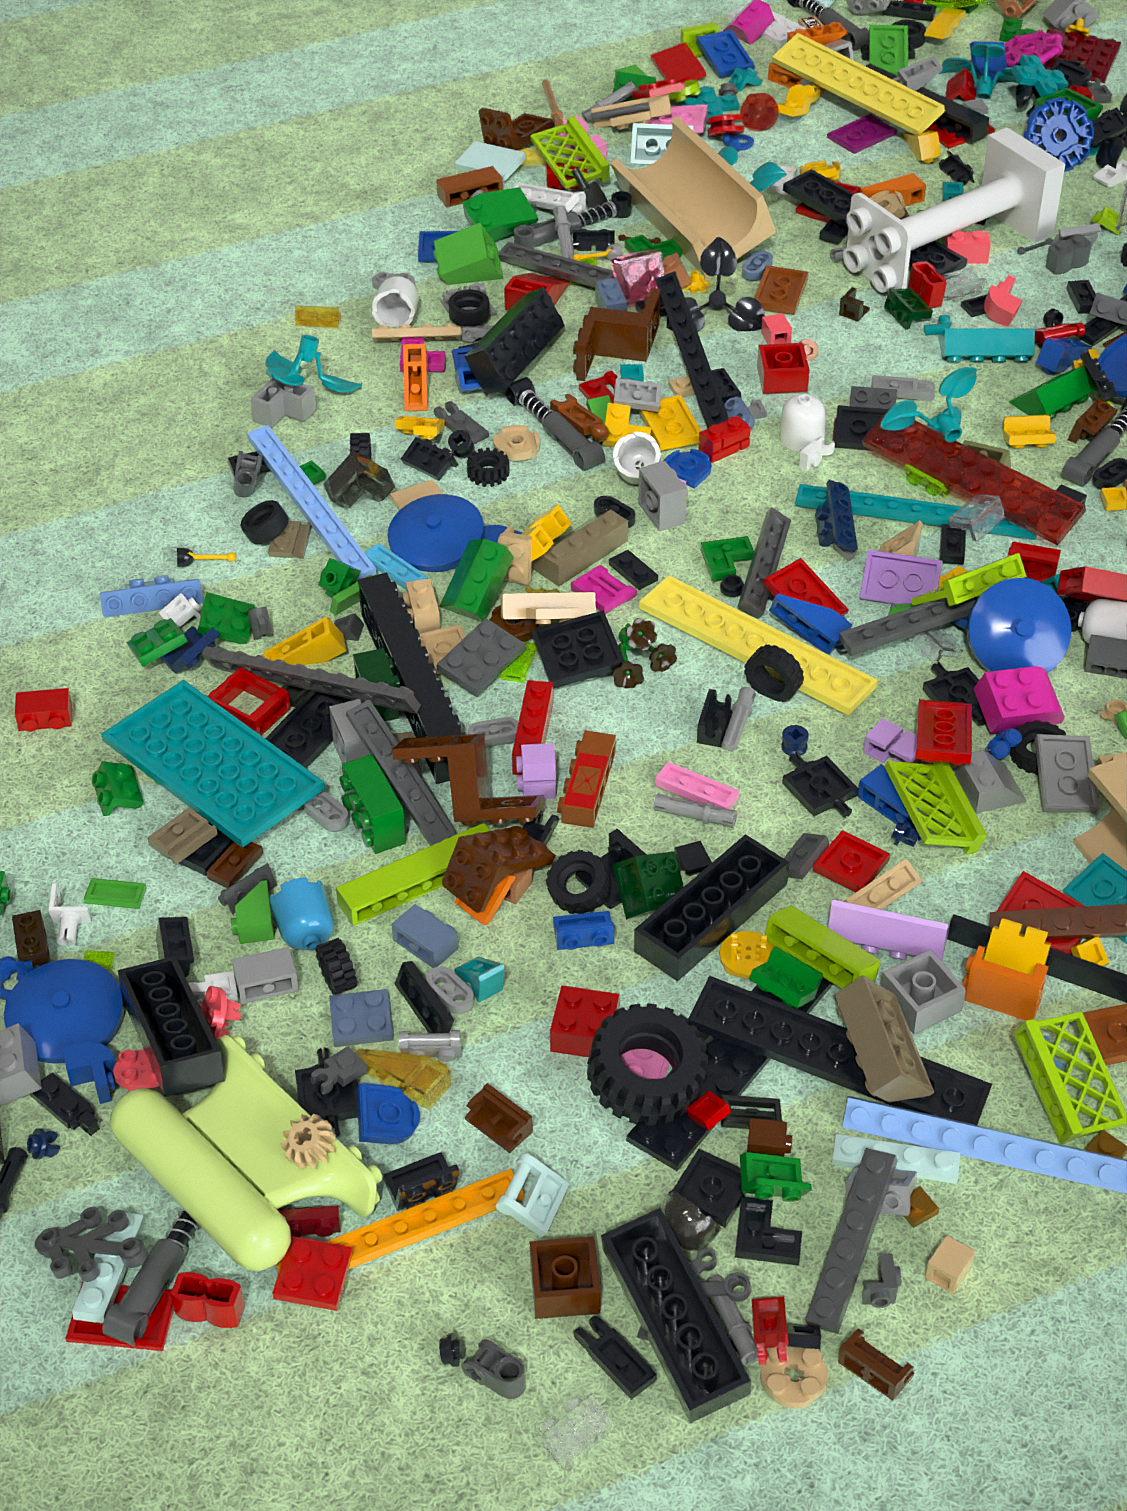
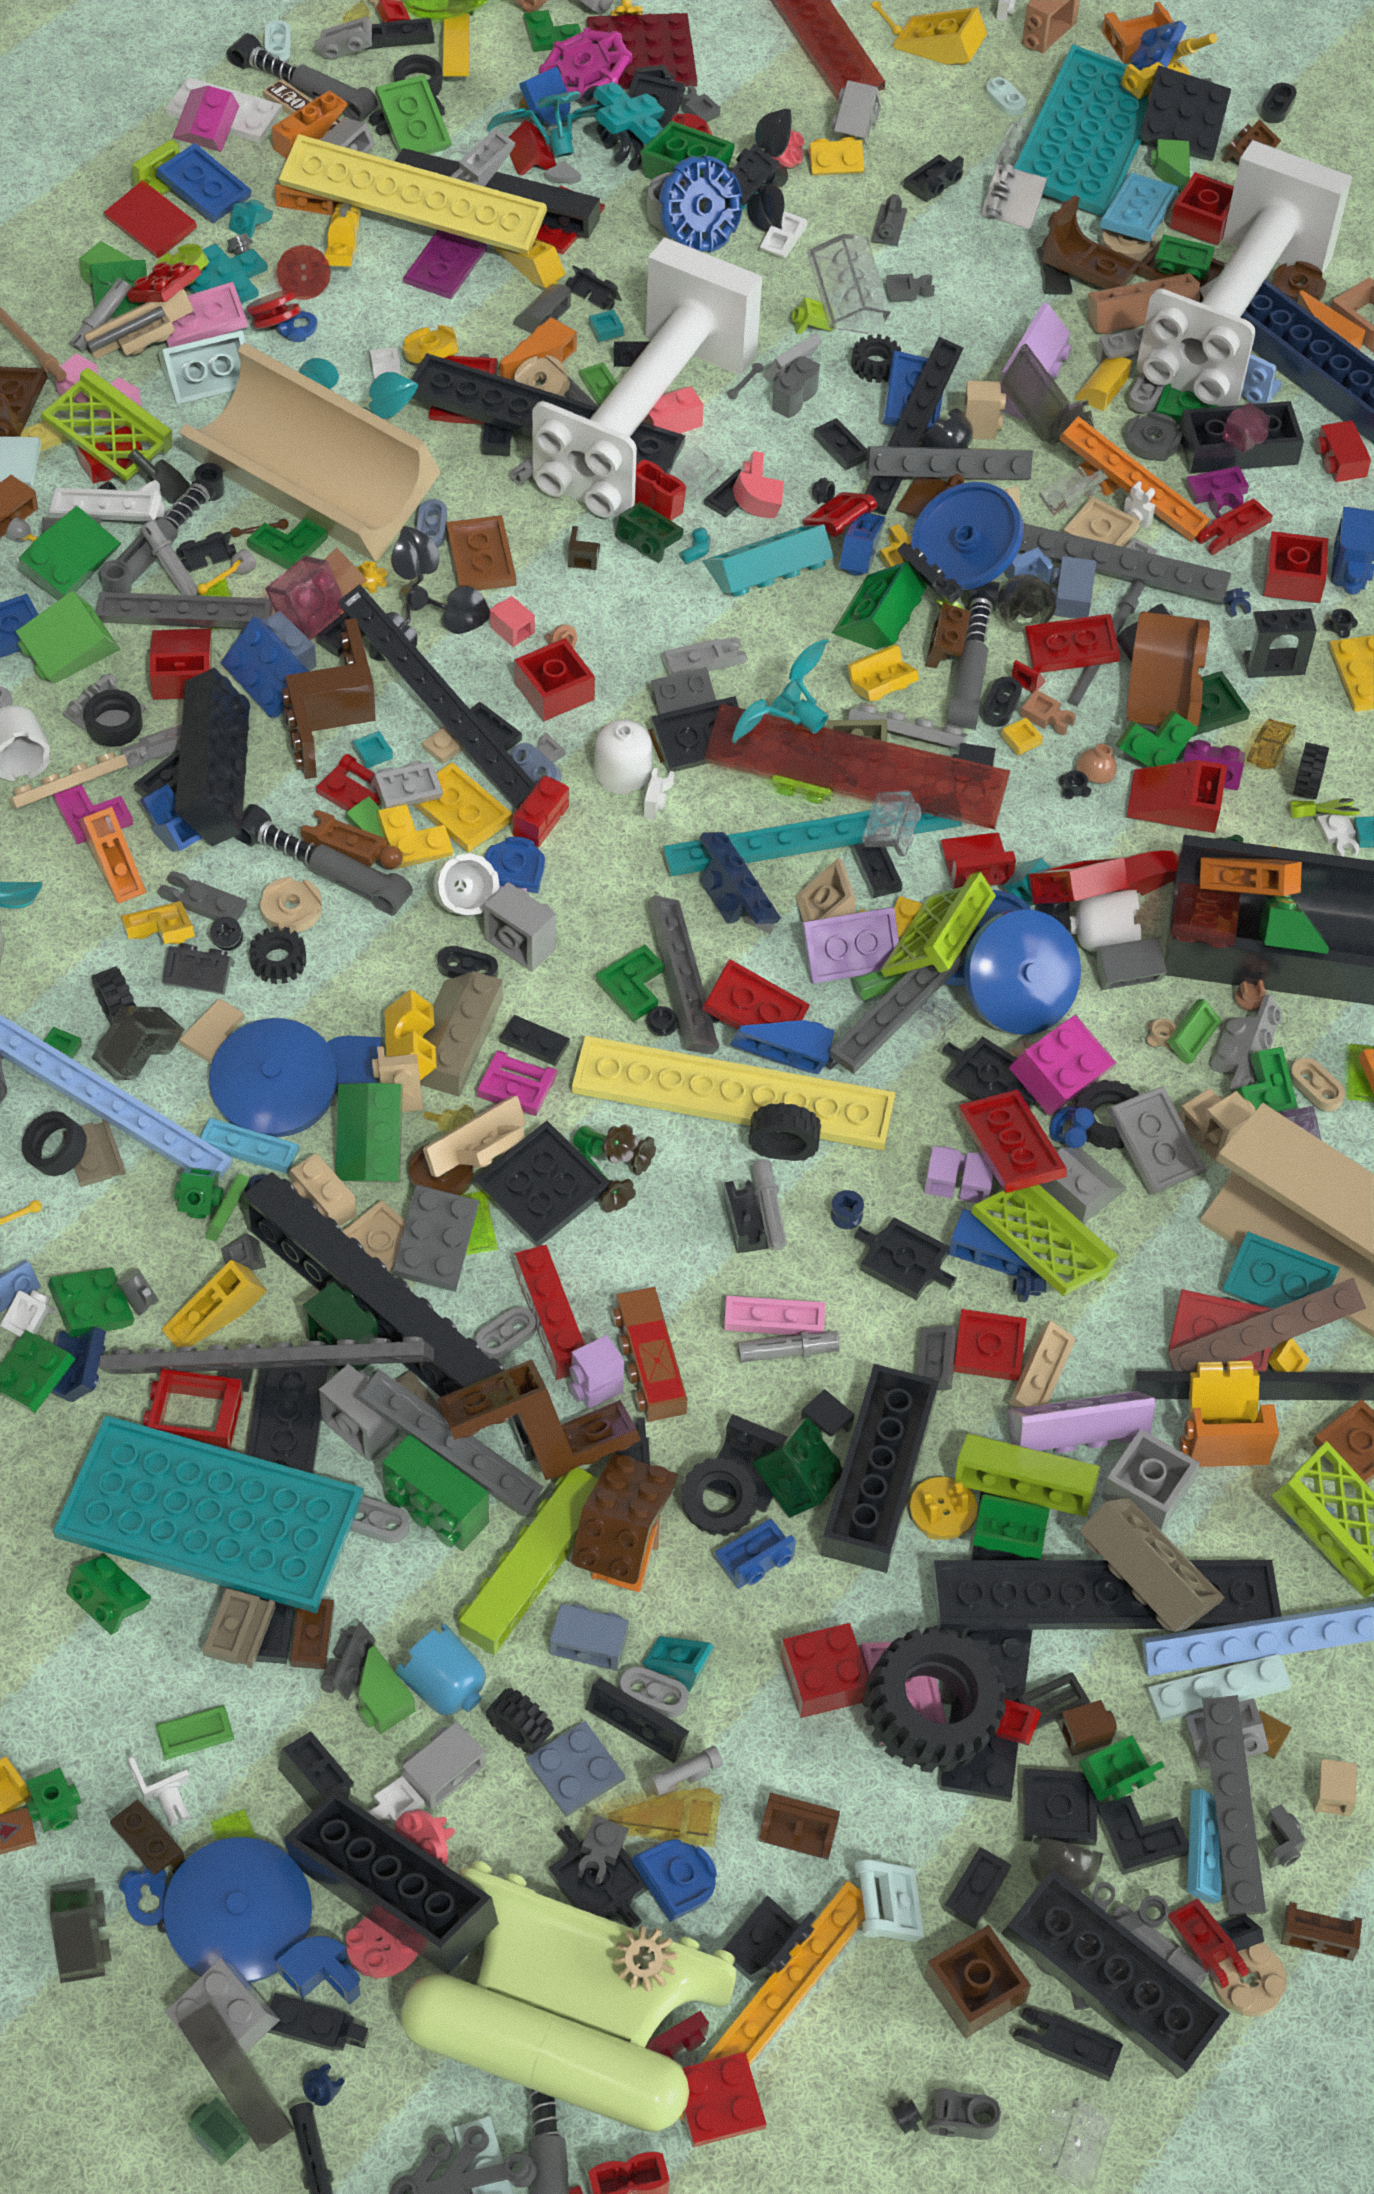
camera: 30 degrees left, 10 degrees up
(579, 302) = (260, 665): none -> blue plate
(609, 1214) = (977, 1887): none -> black plate
(804, 1274) = (1204, 1849): none -> medium azure tile
(924, 169) = (550, 303): none -> dark grey brick
(1039, 471) = (920, 728): none -> light grey plate

